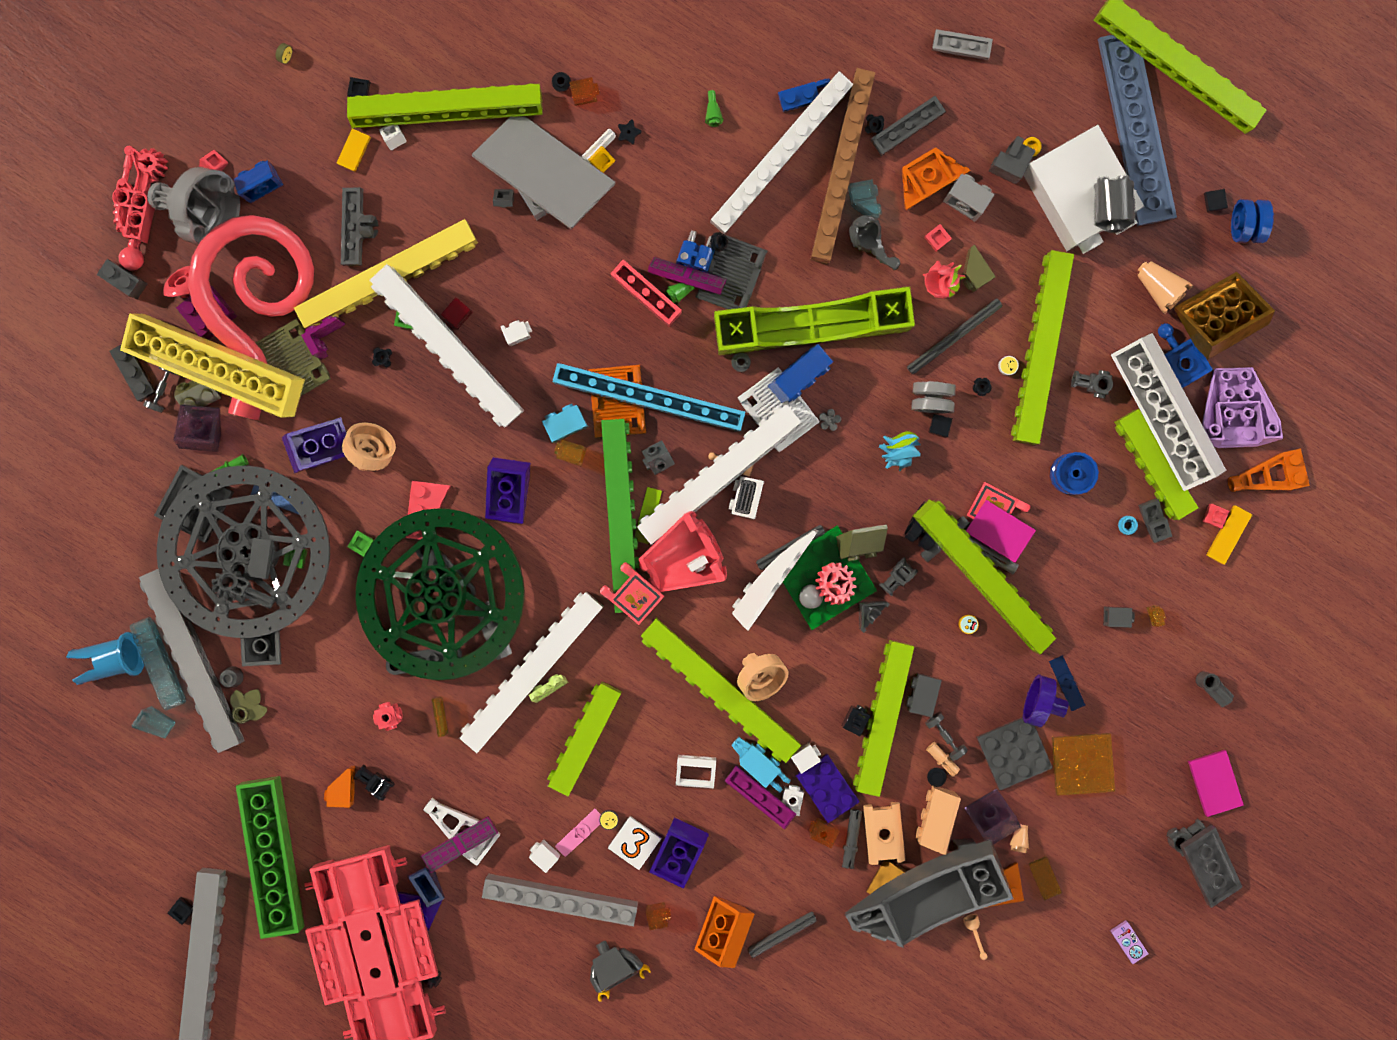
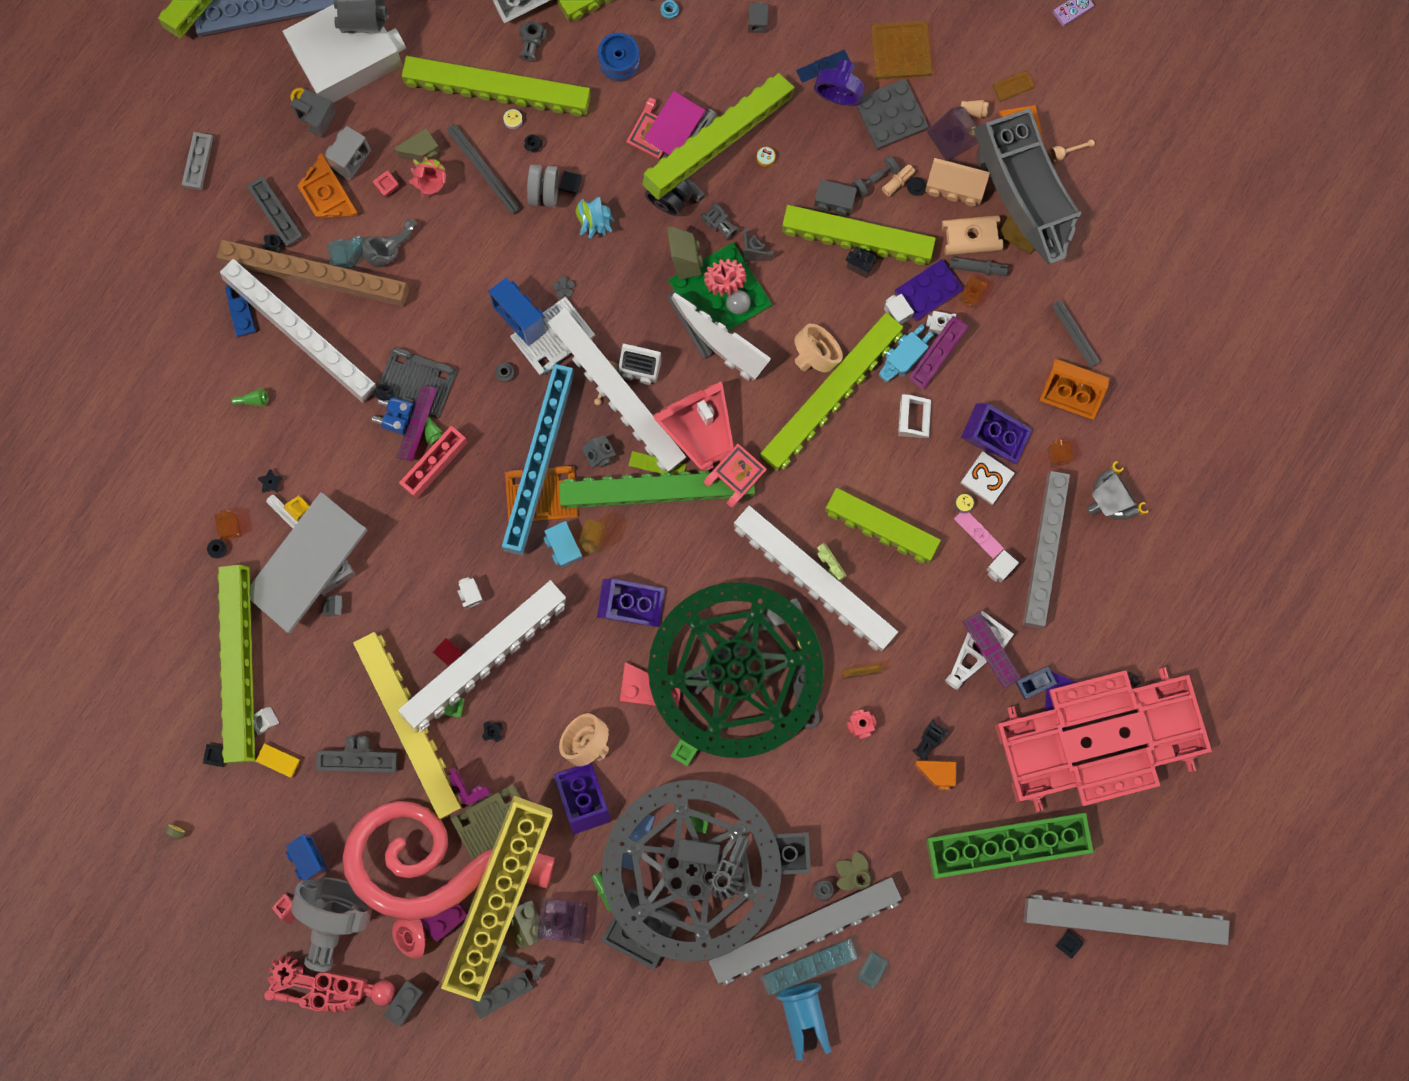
camera: 90 degrees left, 10 degrees down
(843, 319) = (467, 298): lime arch -> none

